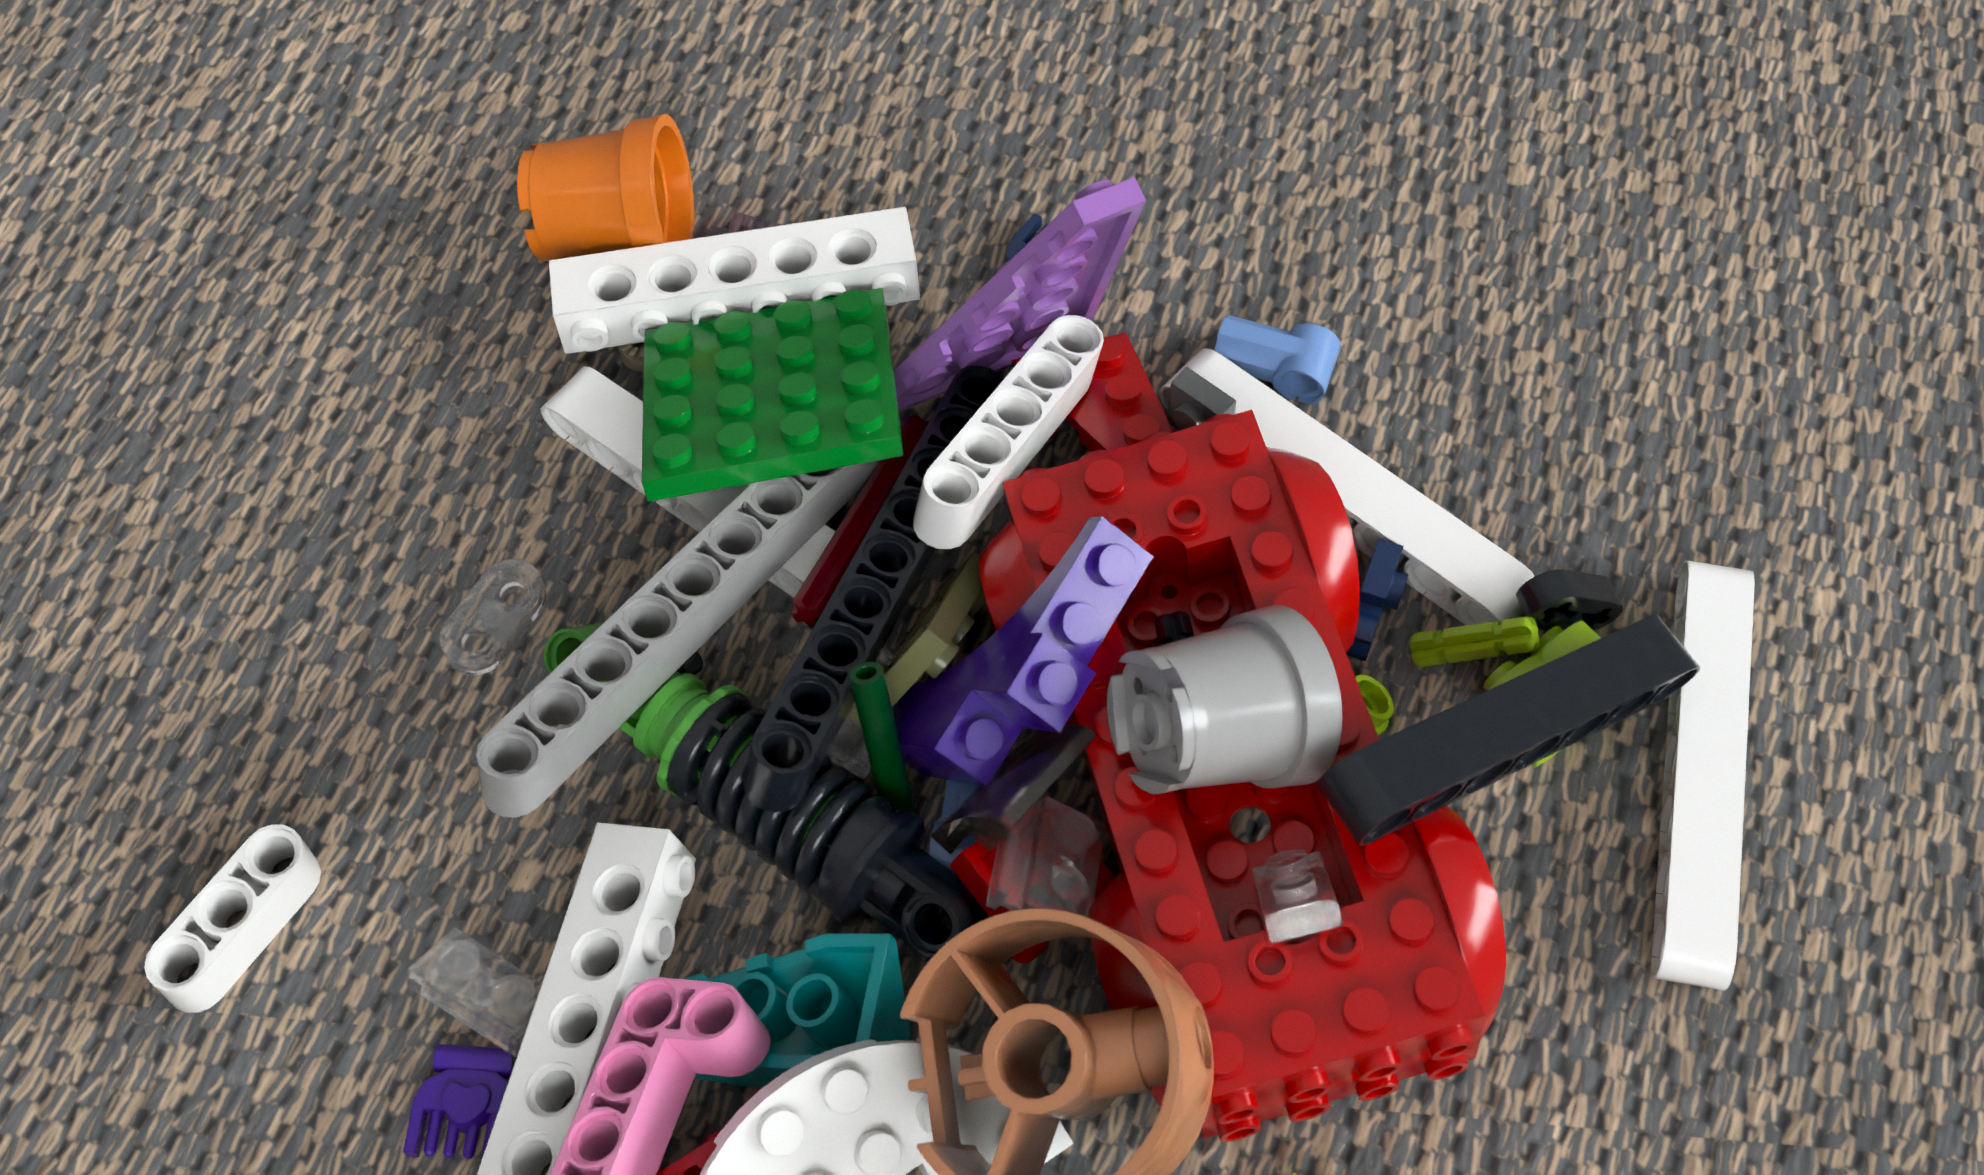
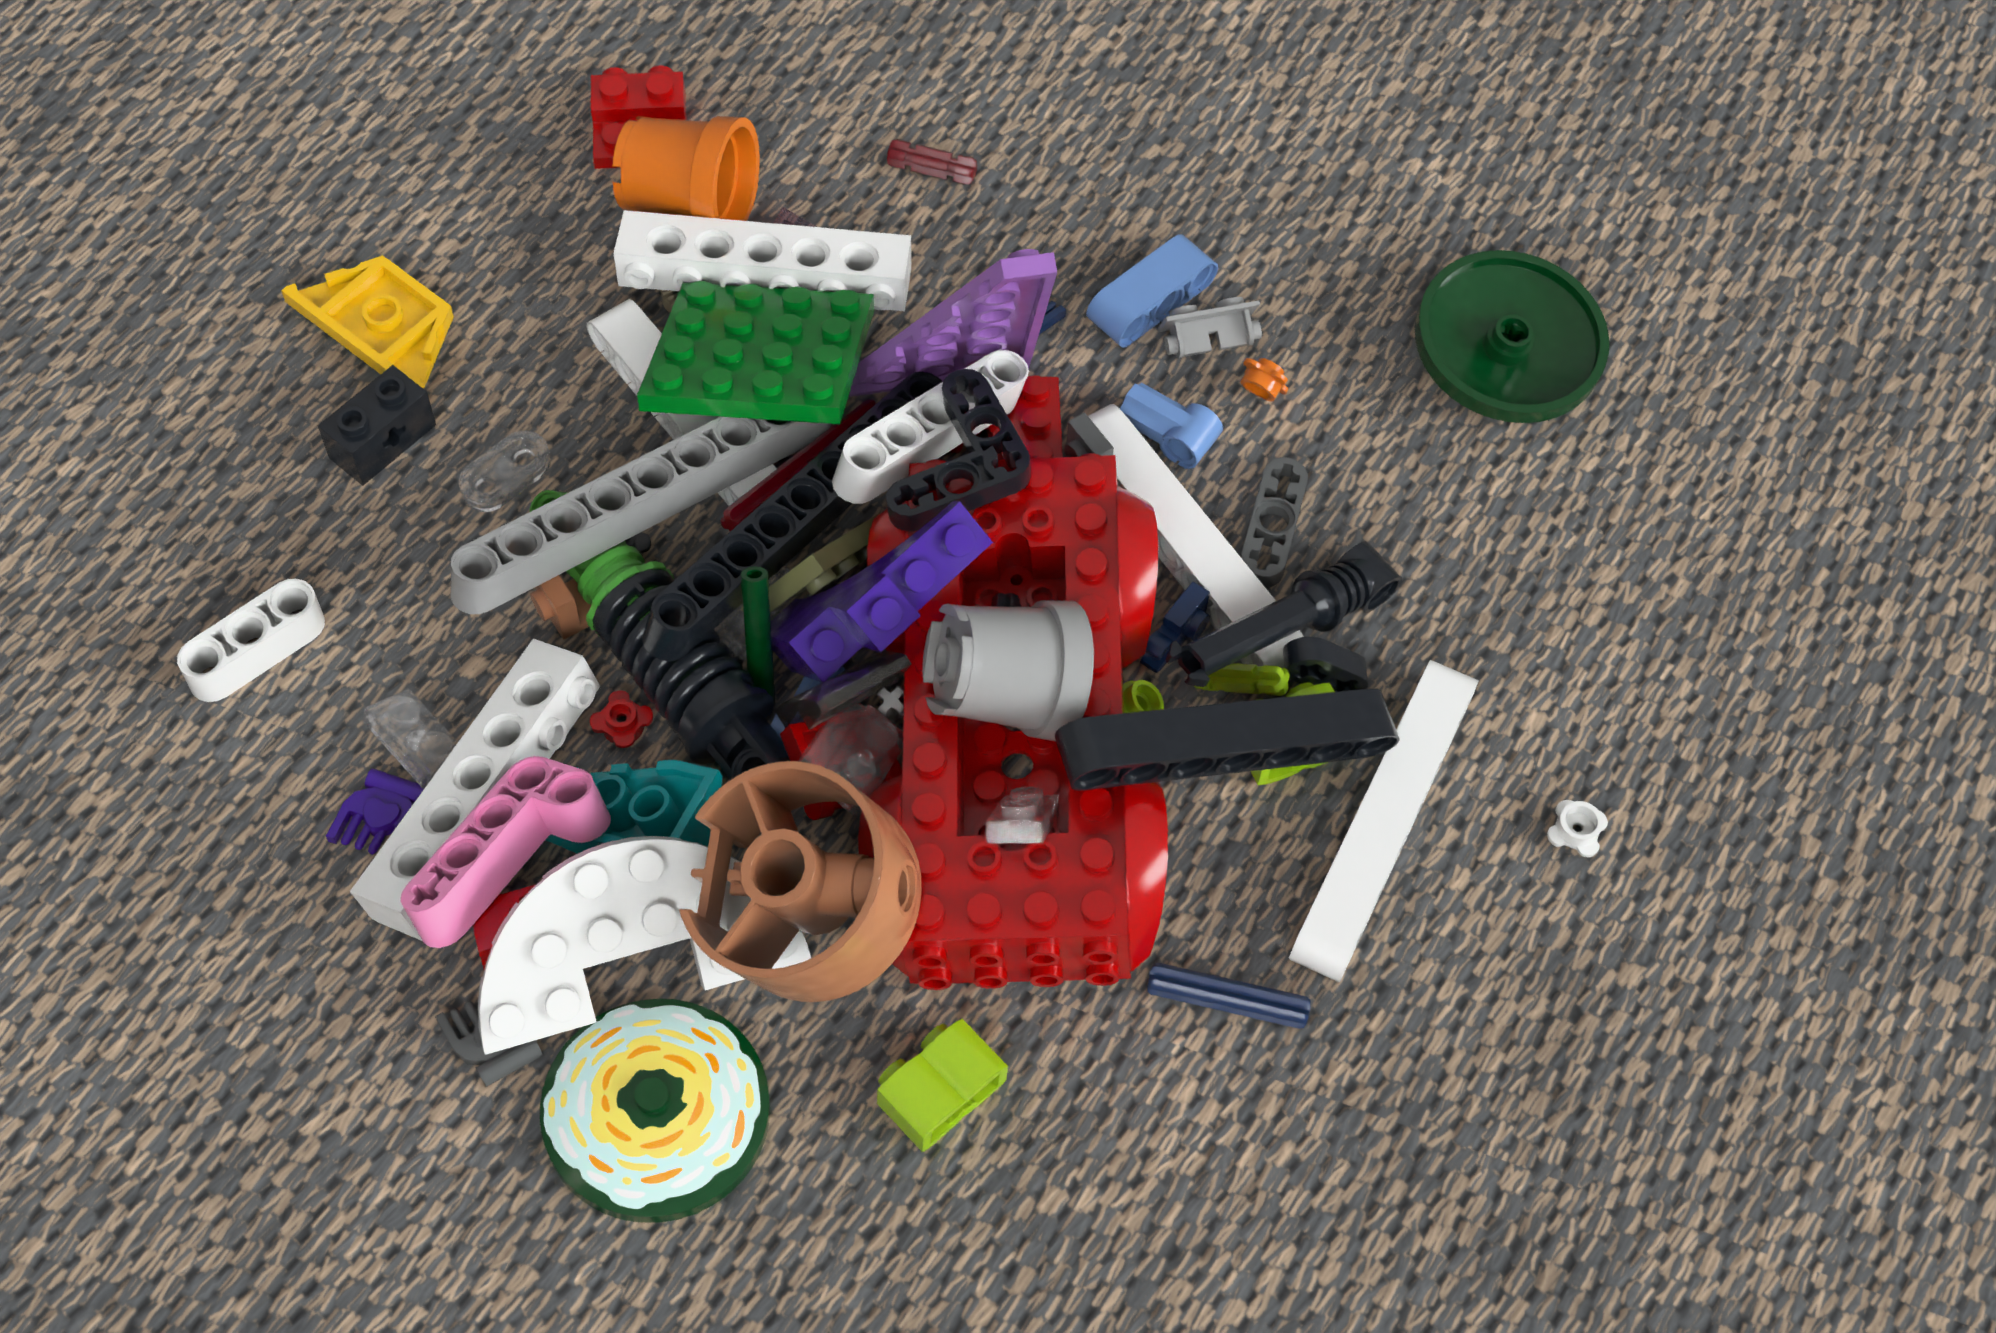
camera: 10 degrees right, 0 degrees up
(281, 466) = (378, 316): none -> yellow wing
(317, 600) = (377, 425): none -> black brick
(503, 128) = (624, 96): none -> red plate
(621, 770) = (561, 605): none -> nougat bracket
(740, 912) = (621, 733): none -> red plate
(890, 117) = (932, 161): none -> dark red axle
(1076, 786) = (892, 703): none -> light grey axle
(1093, 466) = (978, 466): none -> black beam
(1199, 203) = (1151, 289): none -> medium blue beam
(1260, 236) = (1192, 327): none -> light grey hinge
(1366, 274) = (1264, 378): none -> orange plate
(1448, 420) = (1287, 508): none -> dark grey beam
(1531, 525) = (1315, 602): none -> black piece
(1599, 1045) = (1228, 995): none -> dark blue axle
(1634, 155) = (1511, 336): none -> dark green dish
(1939, 706) = (1582, 814): none -> white plate

